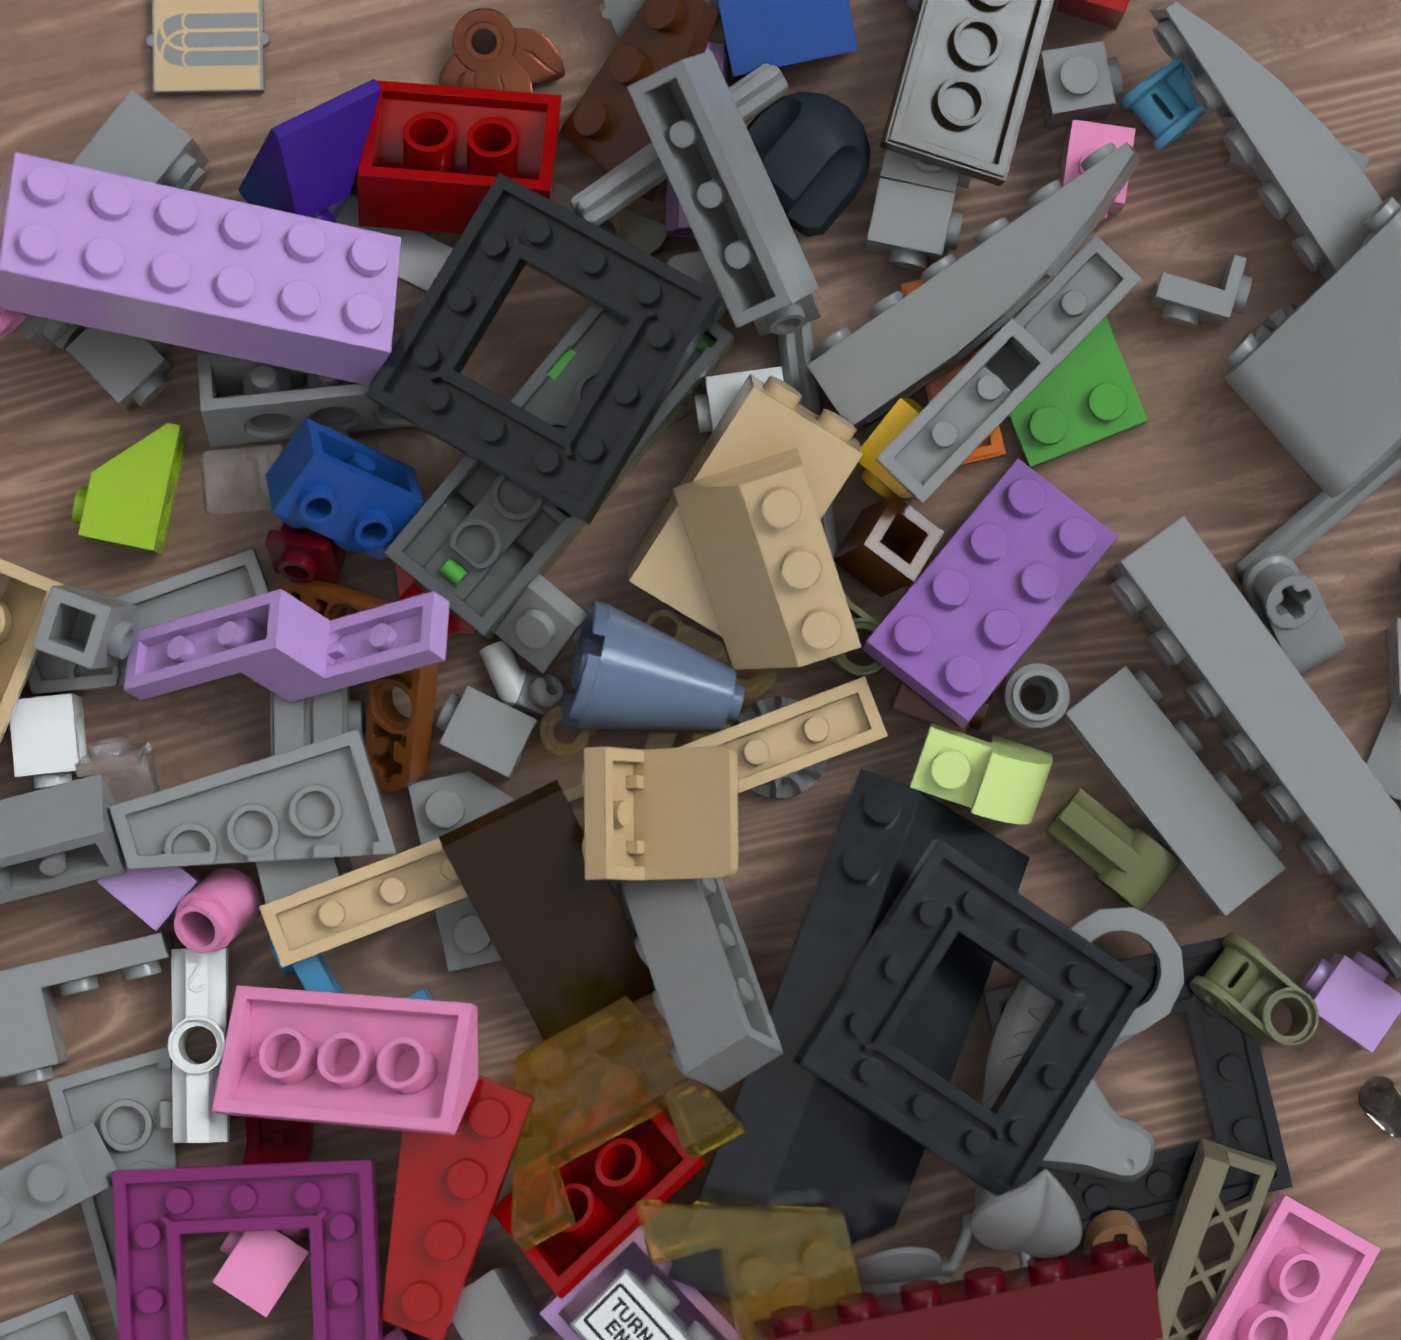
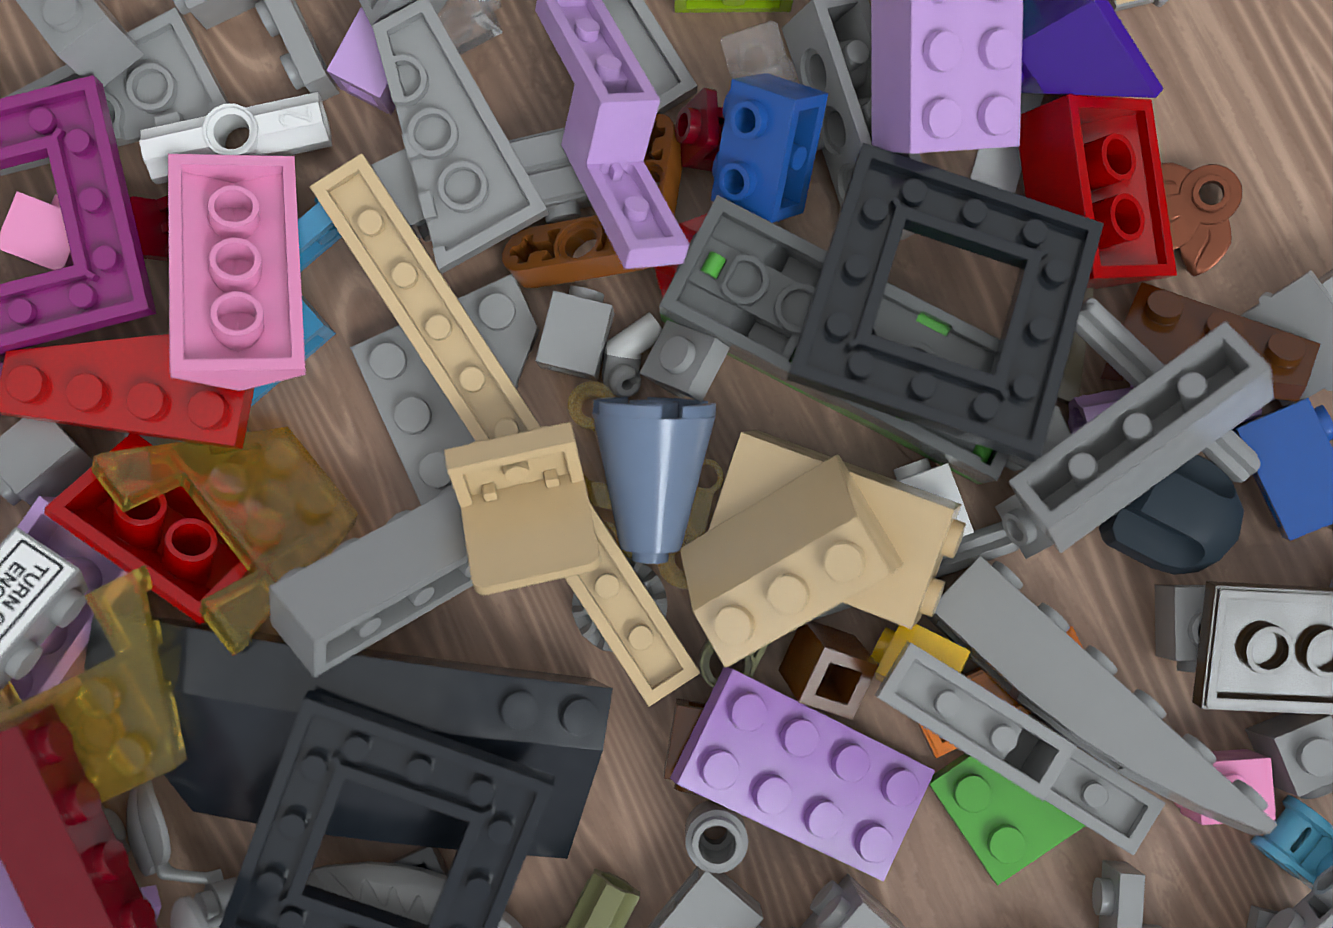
camera: 80 degrees right, 0 degrees up
(216, 910) = (357, 121): bright pink brick -> none
(550, 926) = (431, 398): dark brown tile -> none
(912, 224) = (1133, 625): light grey brick -> none
(991, 777) = (631, 814): yellowish green brick -> none

